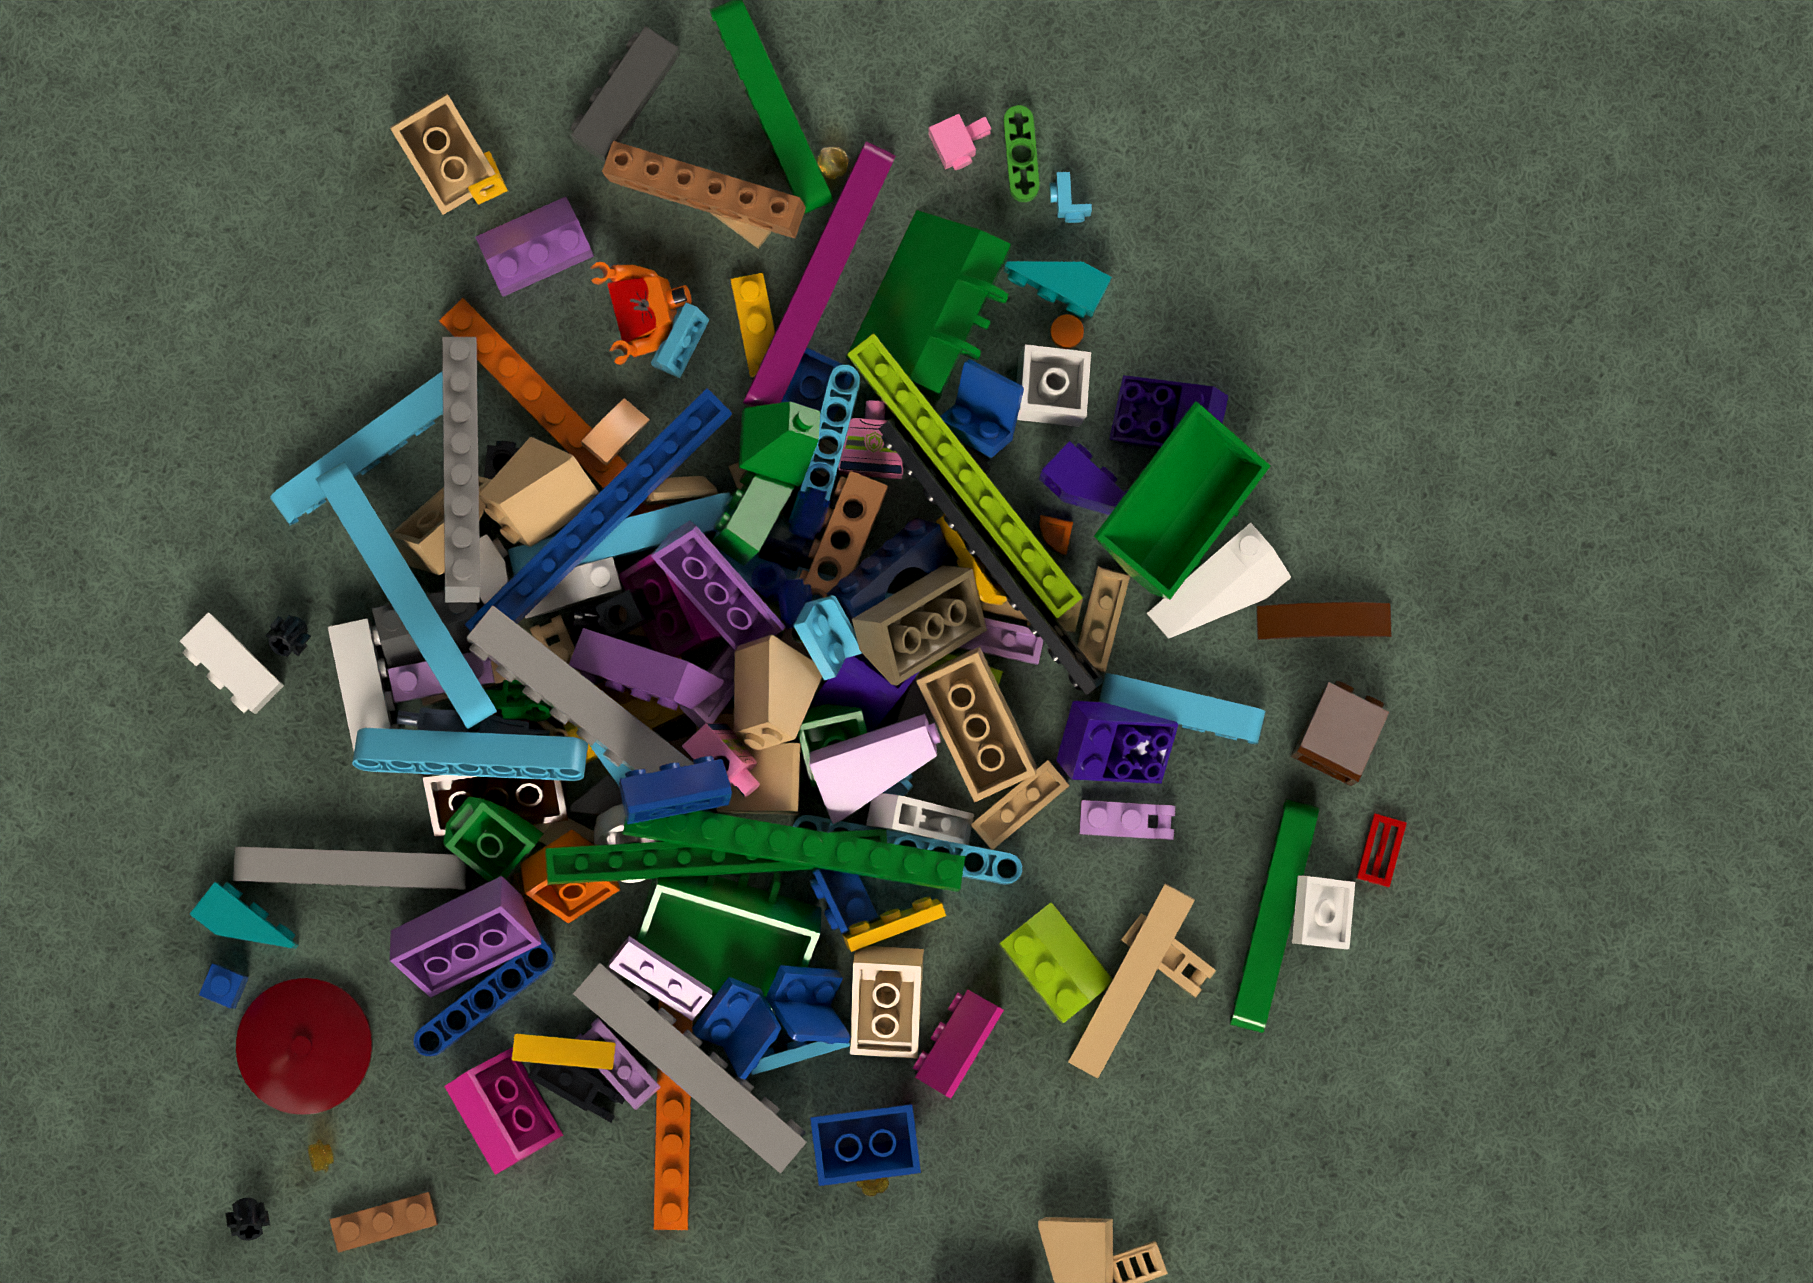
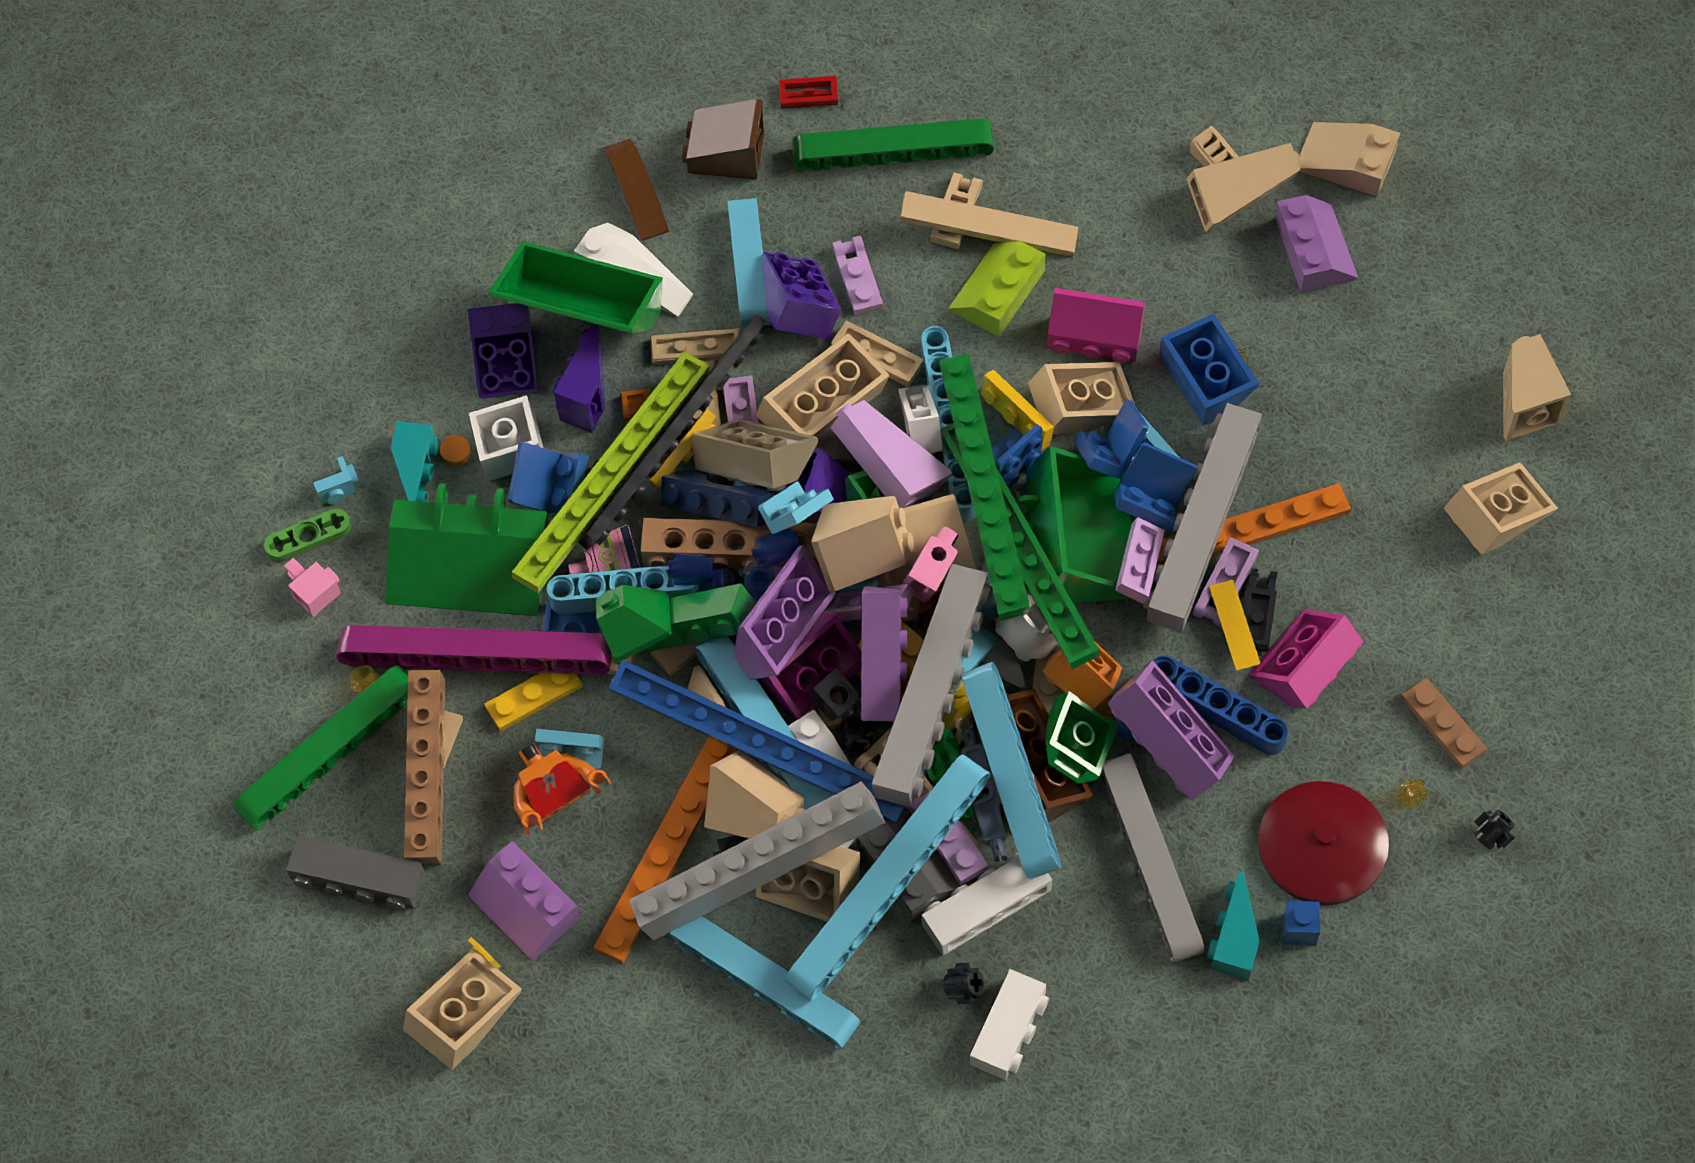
camera: 100 degrees left, 20 degrees down
(615, 431) = (673, 769): light nougat slope -> none
(675, 790) = (978, 566): blue slope -> none
(1323, 912) = (876, 108): white plate -> none

